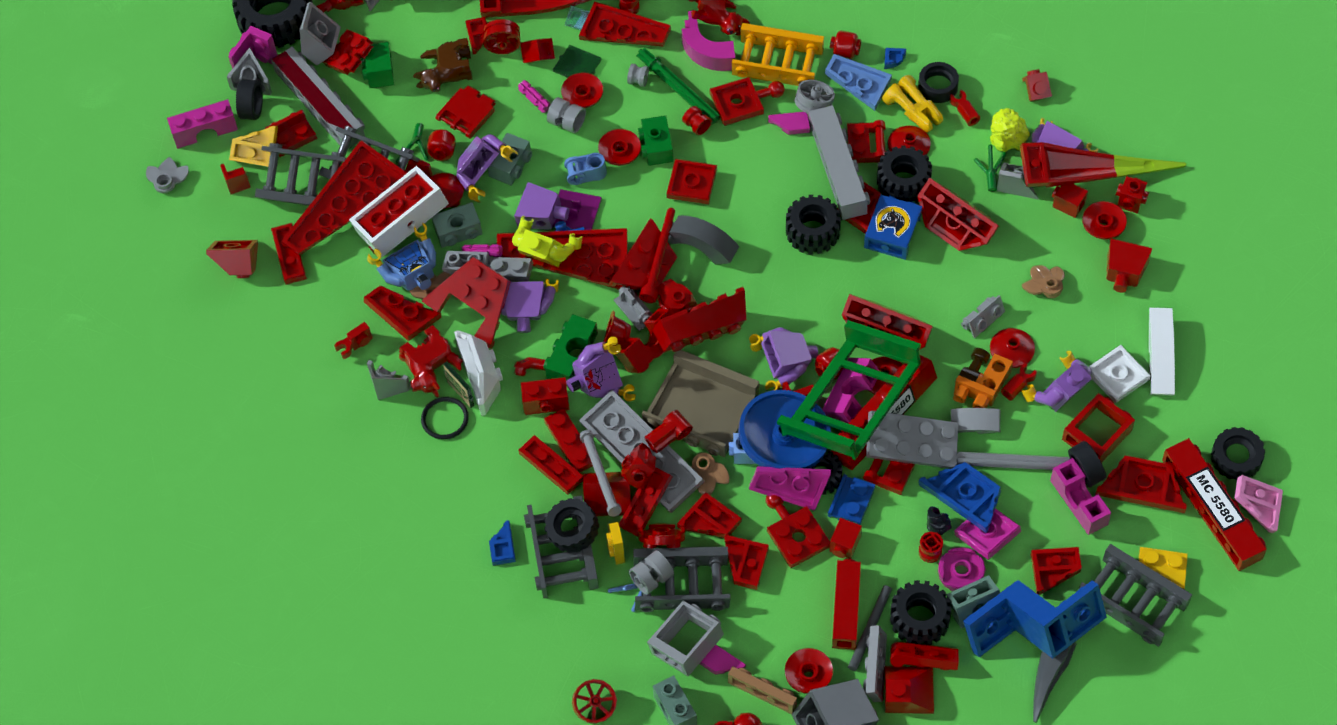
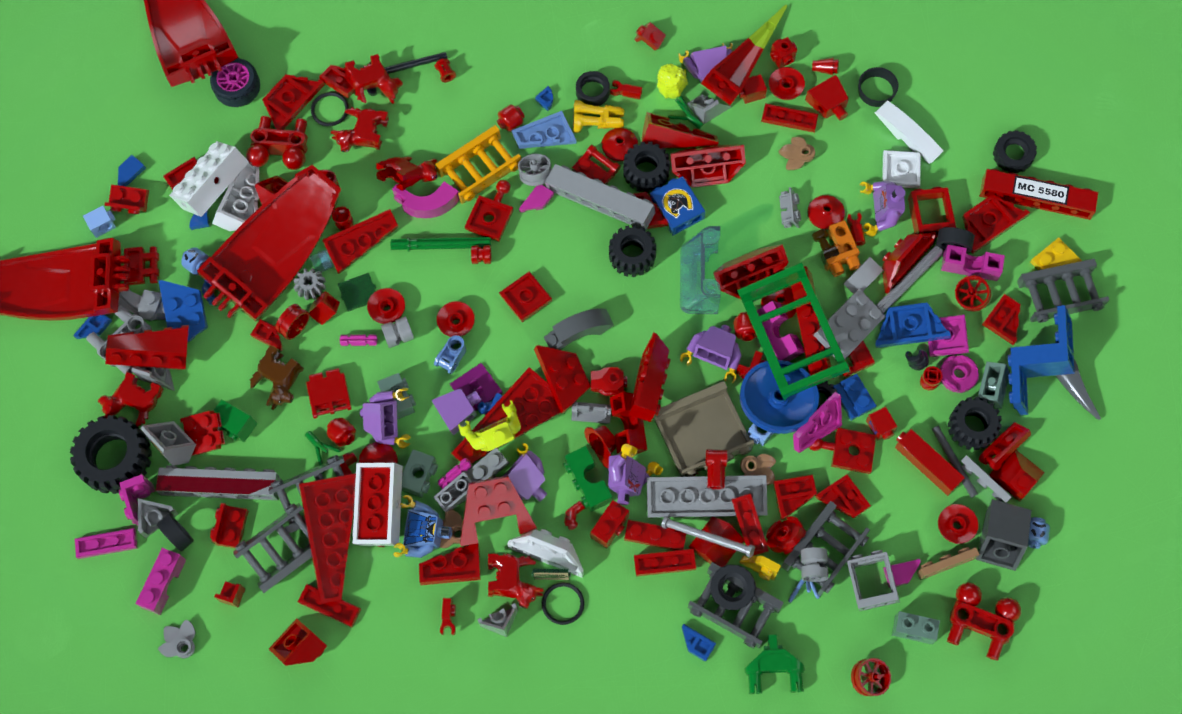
camera: 50 degrees left, 10 degrees up
(201, 66) = (105, 543): none -> dark pink tile
(249, 147) = (218, 560): yellow wing -> none
(538, 613) = (775, 660): none -> green connector
(548, 24) = (302, 284): none -> light grey gear
(638, 75) = (408, 261): light grey wheel -> none
(638, 463) = (725, 507): red hand -> none
(649, 291) = (592, 393): red piece -> none
(657, 140) = (473, 292): green brick -> none
(869, 272) = (696, 292): none -> clear light blue windscreen
(953, 164) = (668, 135): none -> red wedge
(1029, 438) = (904, 257): none -> red wedge
(1049, 510) = (973, 293): none -> red wheel
(1075, 250) = (789, 118): none -> red tile
(1159, 240) = (827, 66): none -> red cone
(1185, 277) = (878, 72): none -> black tyre
(1260, 501) = (1059, 168): bright pink wing -> none

